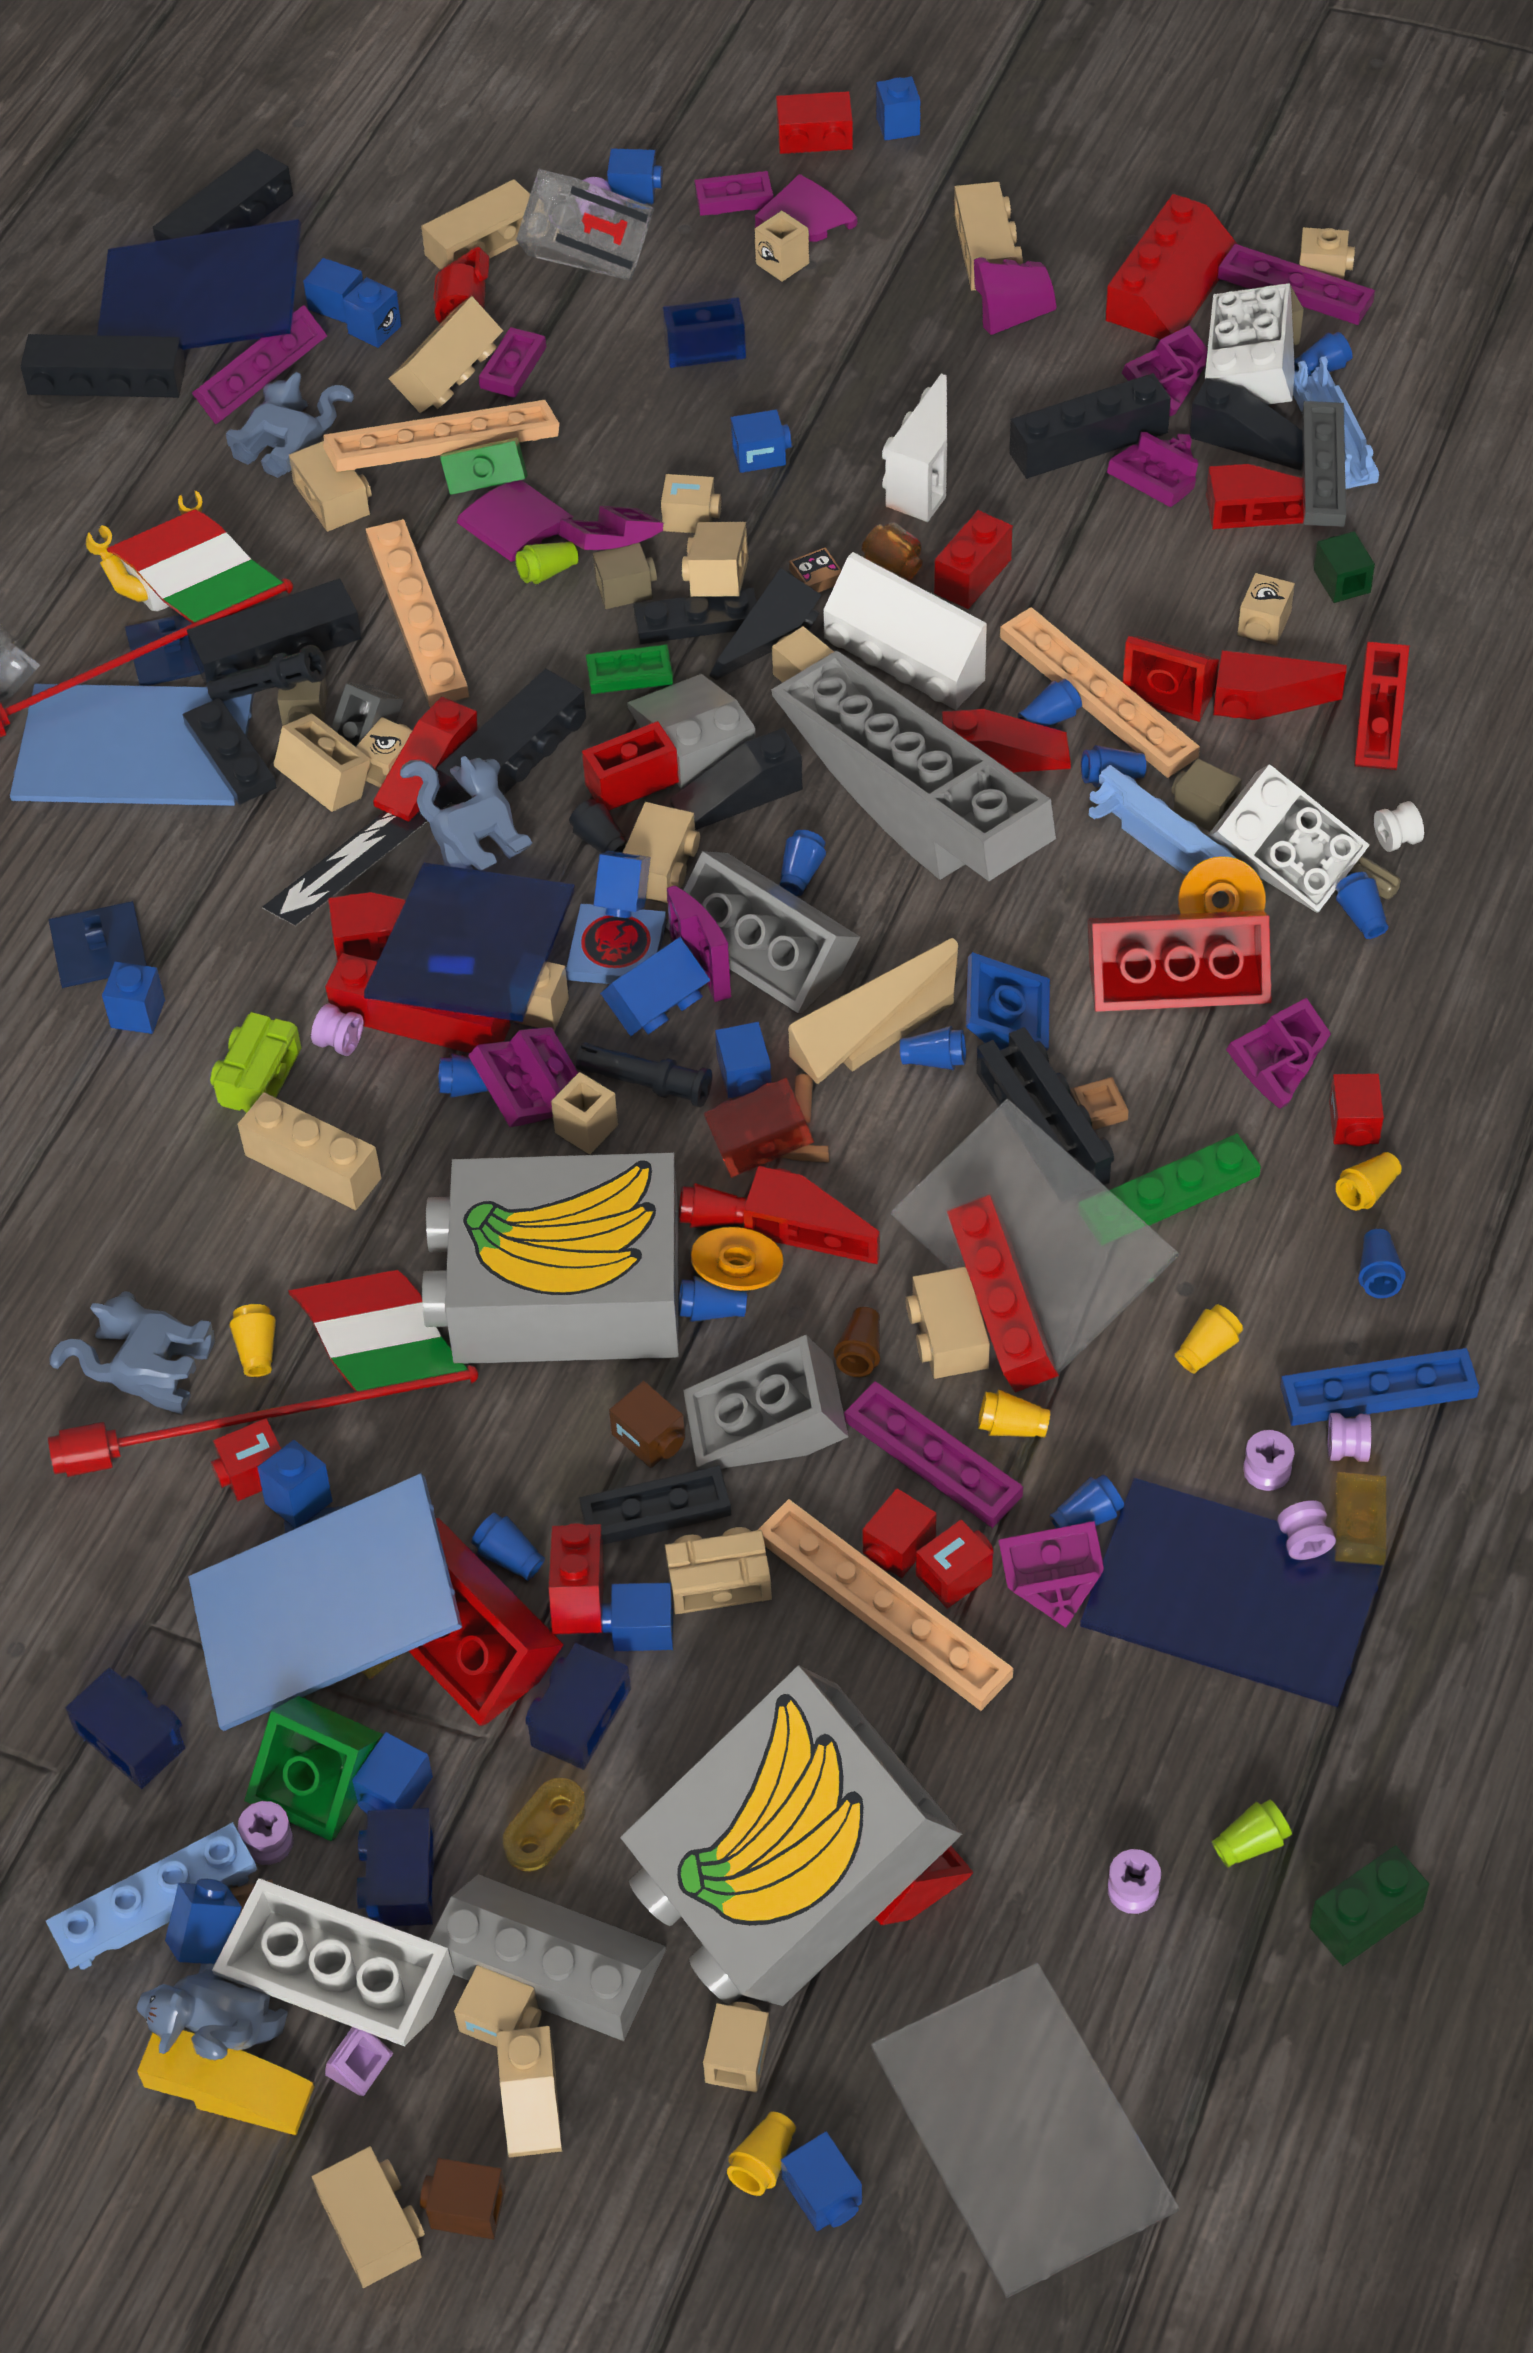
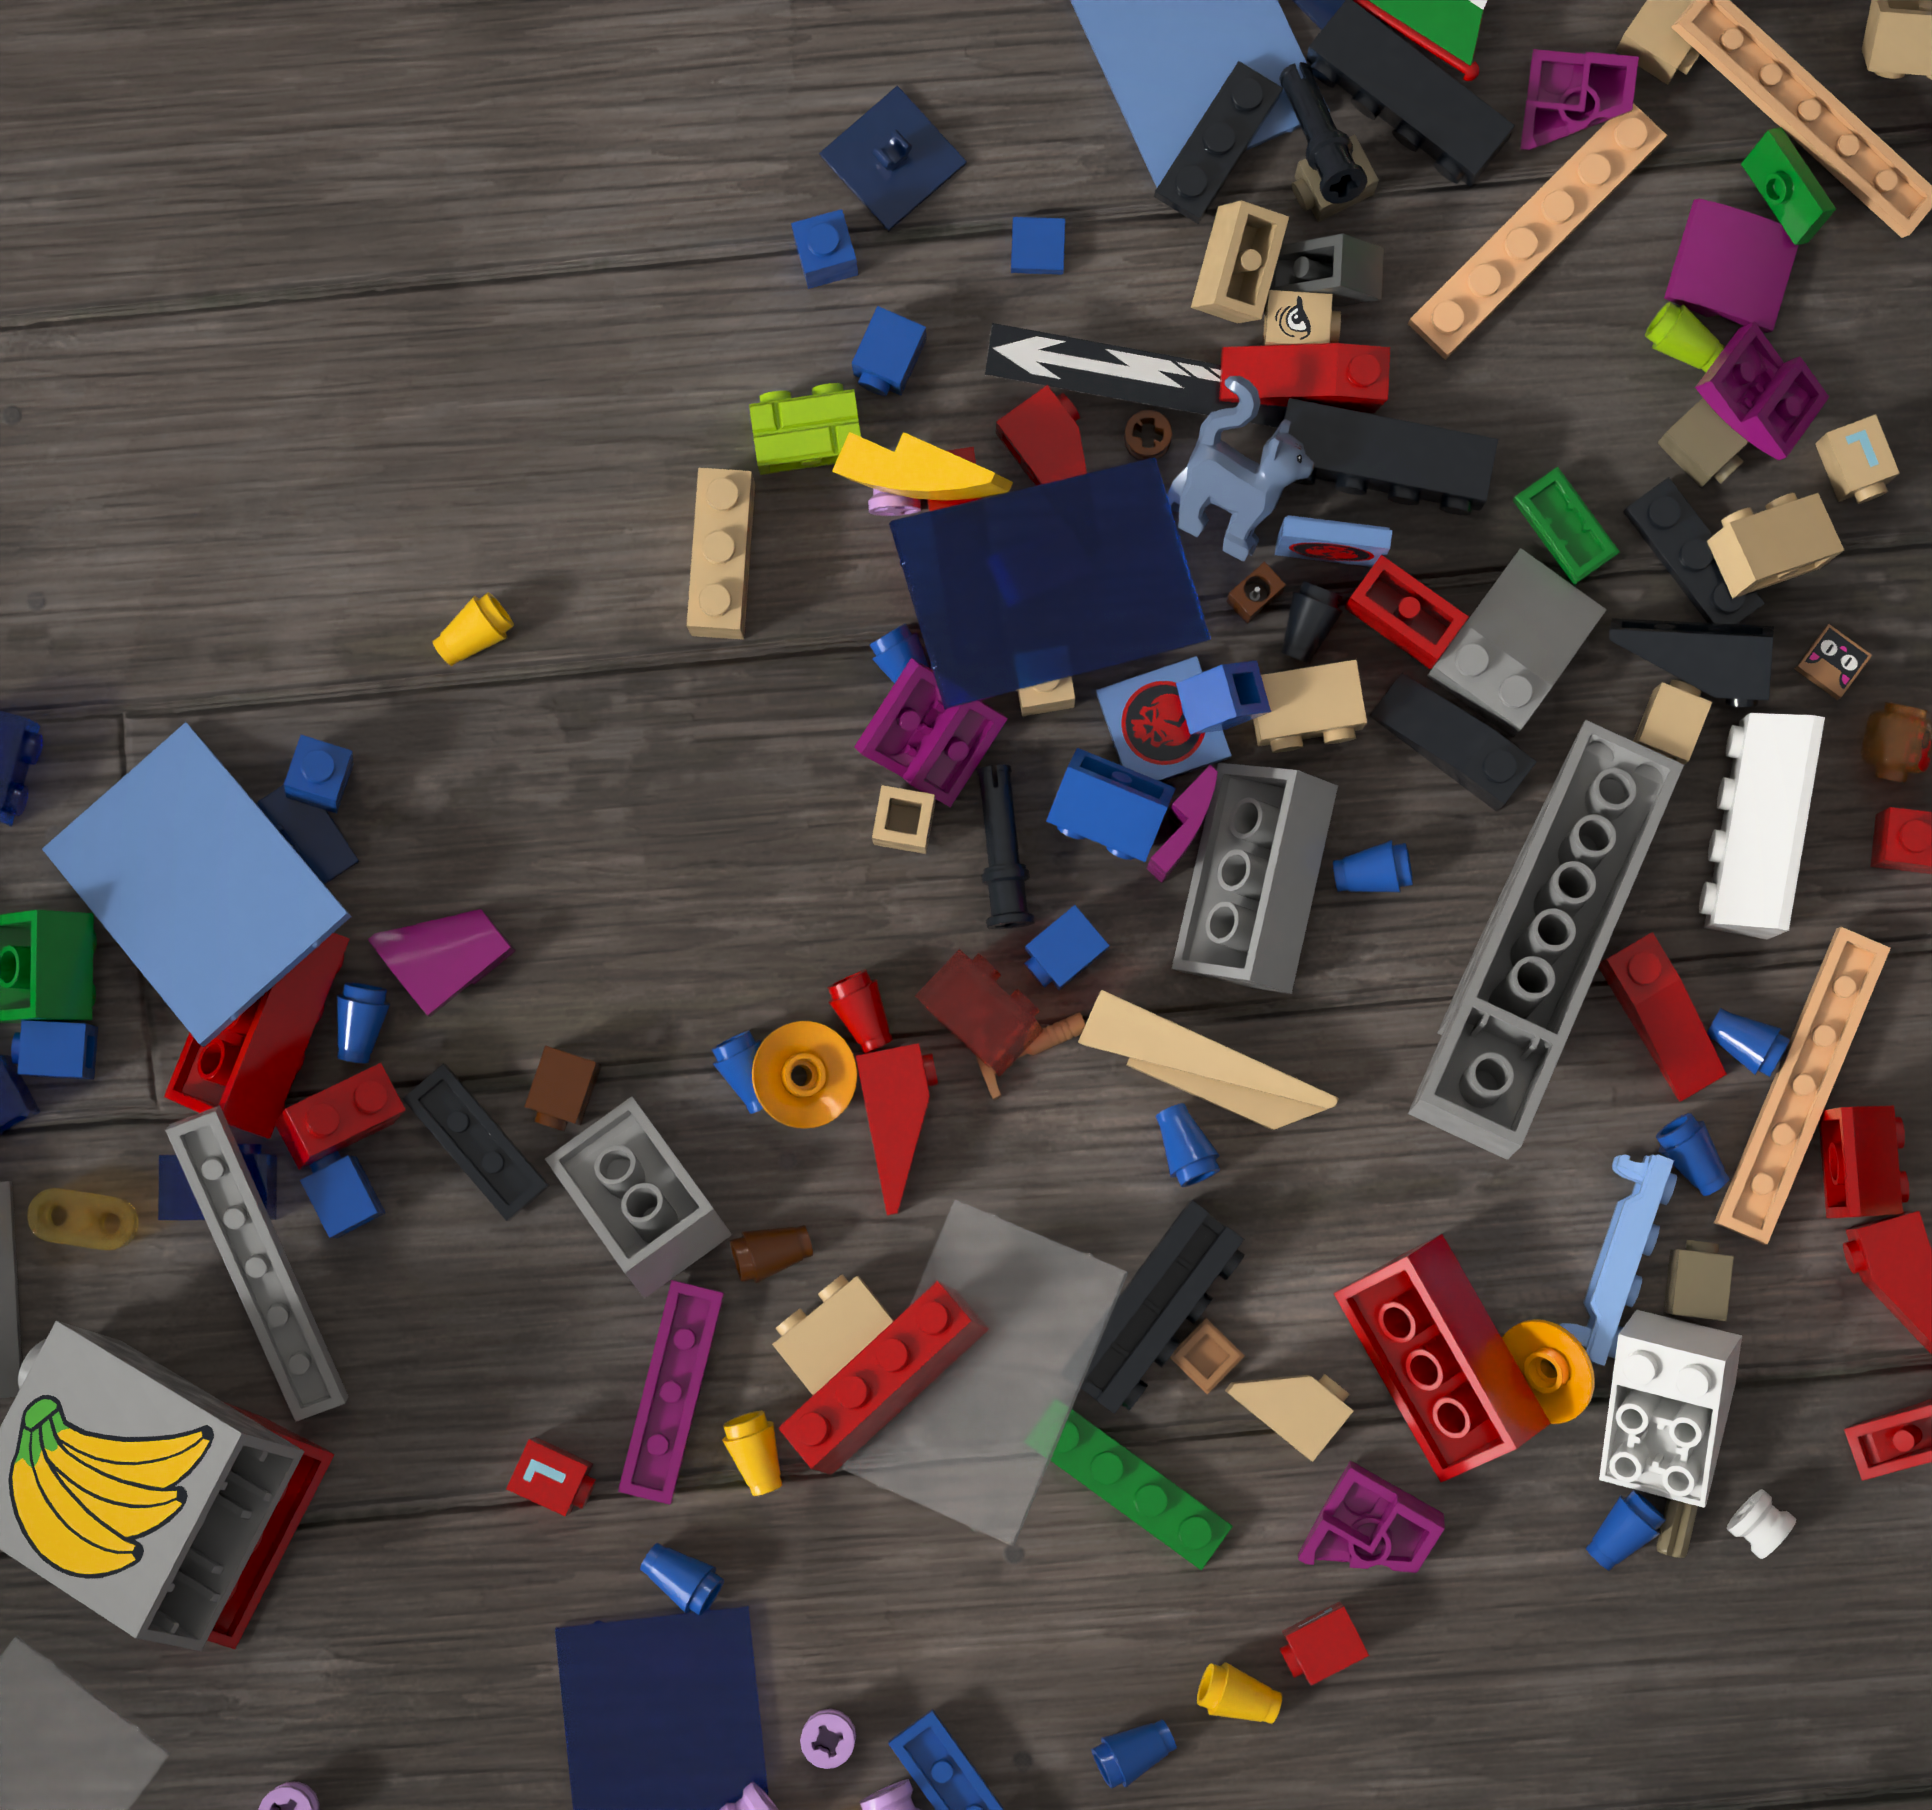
camera: 65 degrees right, 30 degrees up
(144, 1360) = (401, 531): sand blue animal -> none
(223, 882) = (1038, 245): none -> blue tile
(234, 990) = (888, 352): none -> blue brick
(241, 1454) = (330, 709): red brick -> none
(339, 549) = (1575, 93): none -> magenta slope
(339, 977) = (916, 470): none -> yellow slope
(371, 1336) = (541, 748): flag -> none
(402, 864) = (1161, 427): none -> reddish brown bush
(492, 1469) = (442, 956): none -> magenta slope
(553, 782) = (1332, 541): none -> medium blue tile
(556, 1258) = (697, 894): light grey brick -> none
(558, 851) = (1256, 592): none -> reddish brown piece
(636, 1677) = (257, 1263): none -> light grey plate
(718, 1570) = (430, 1243): tan brick -> none
(886, 1605) = (474, 1426): light nougat plate -> none
(898, 1533) = (556, 1404): red brick -> none
(1006, 1000) = (1285, 1197): blue slope -> none
(1053, 1568) = (595, 1576): magenta slope -> none
(1170, 1059) = (1296, 1408): none -> tan slope
(1209, 1338) = (948, 1611): yellow cone -> none

